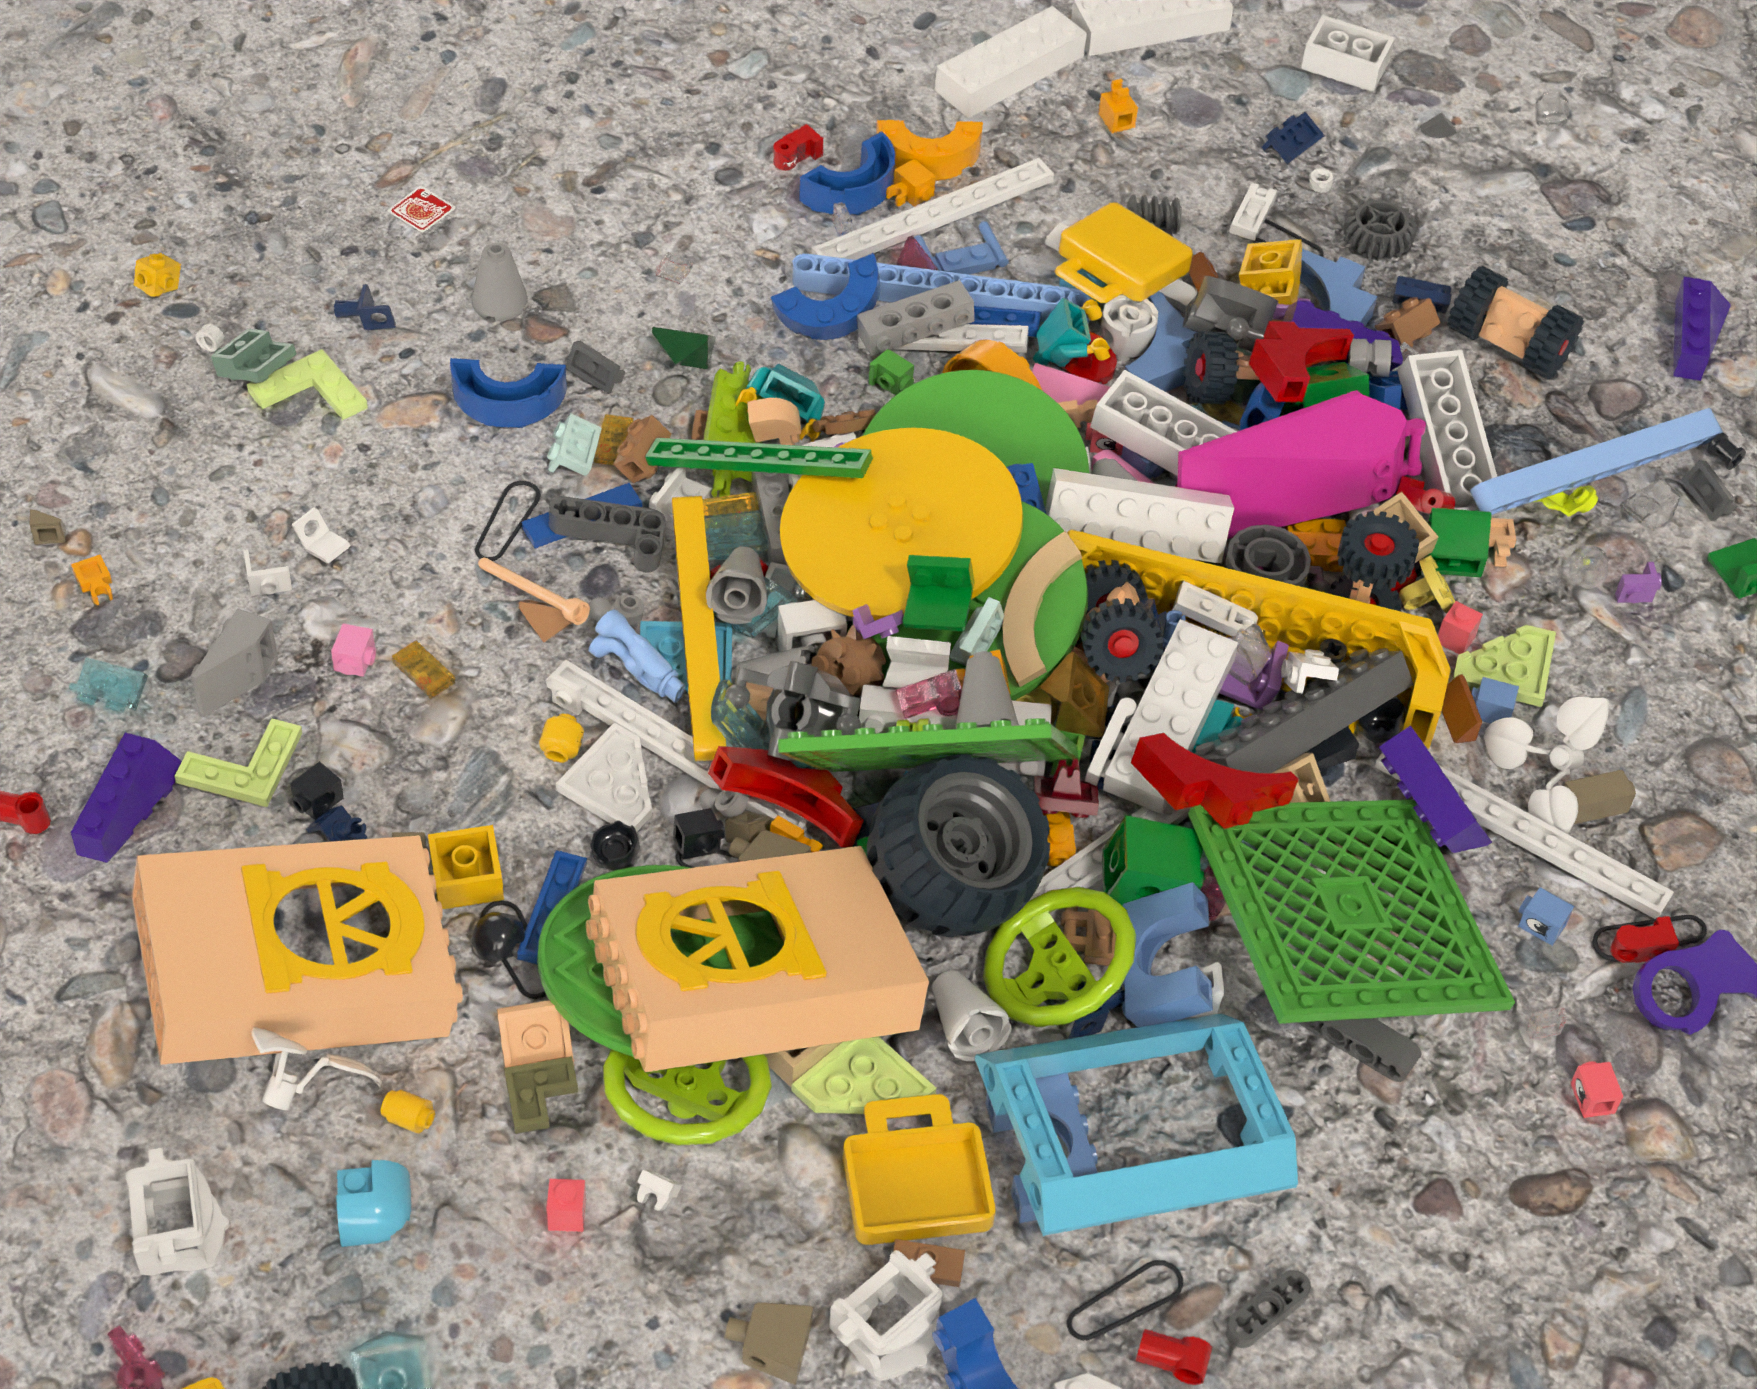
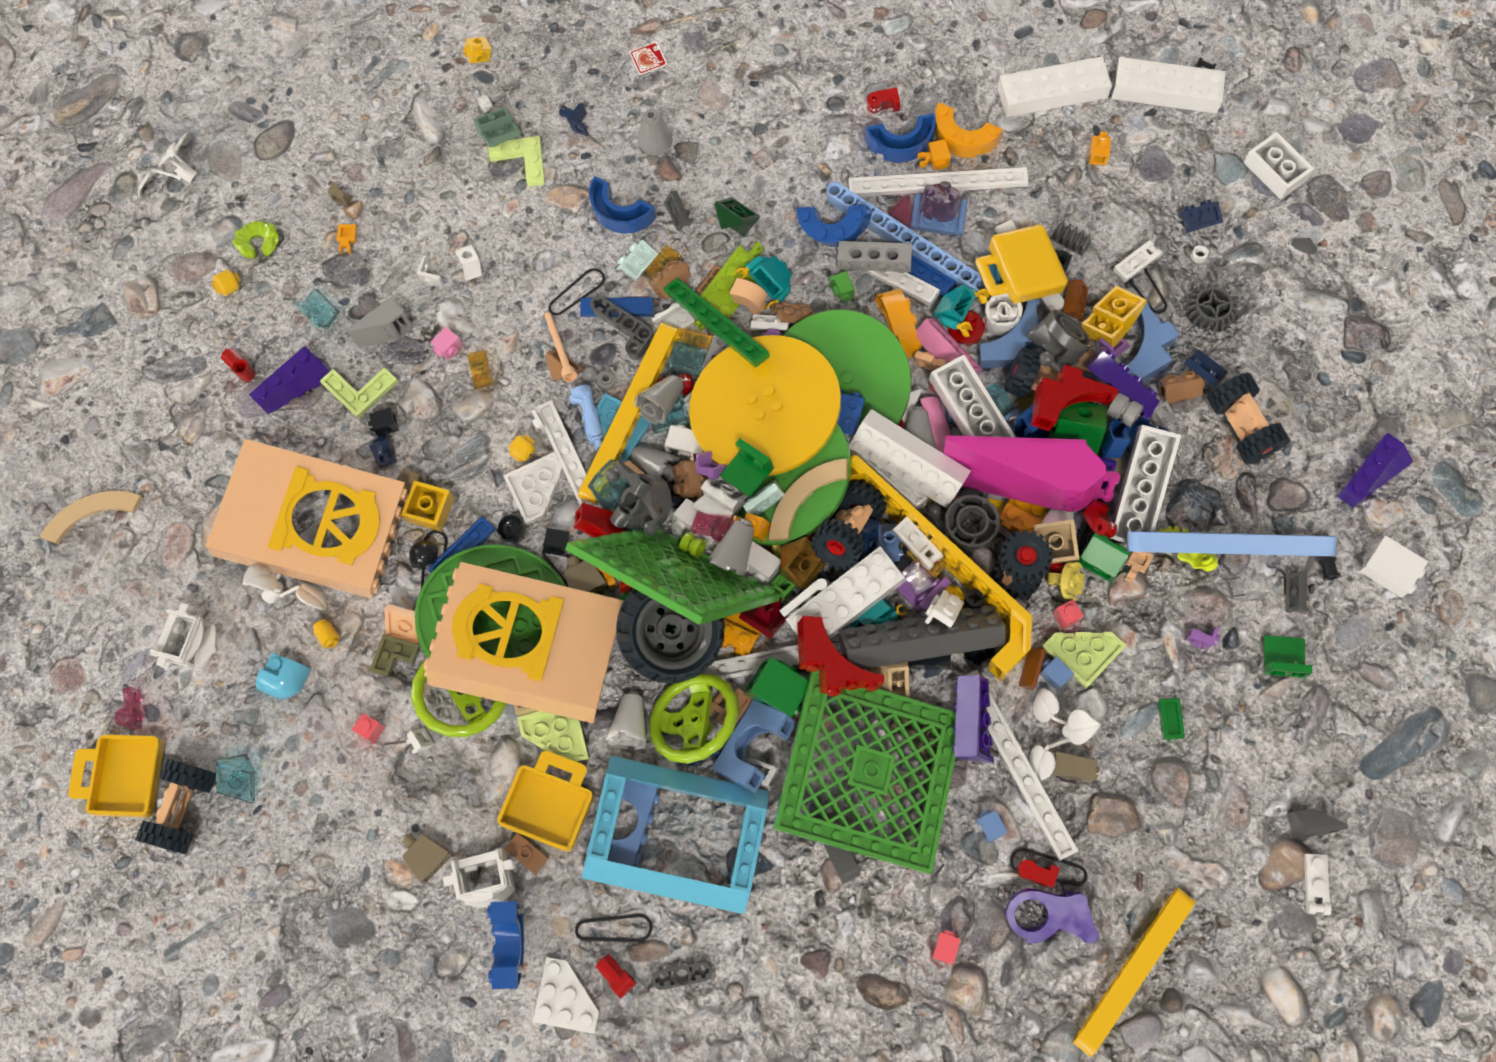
camera: 40 degrees right, 20 degrees up
(958, 228) = (940, 202): none -> clear purple brick
(1669, 695) = (1171, 719): none -> green tile

